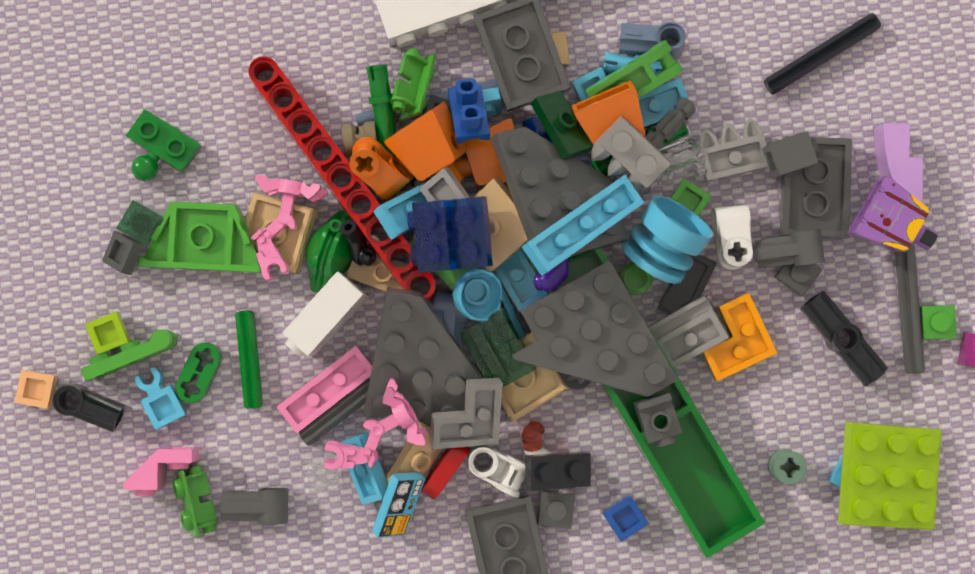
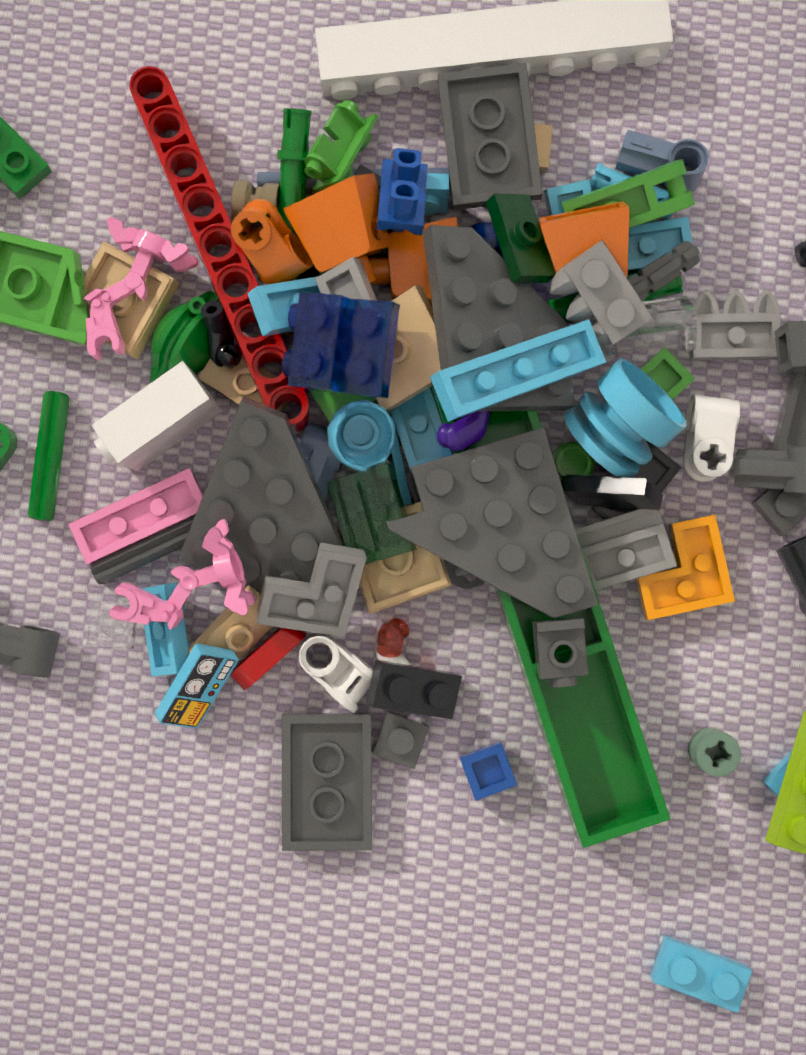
camera: 15 degrees right, 0 degrees up
(669, 294) = (612, 492): none -> black tile

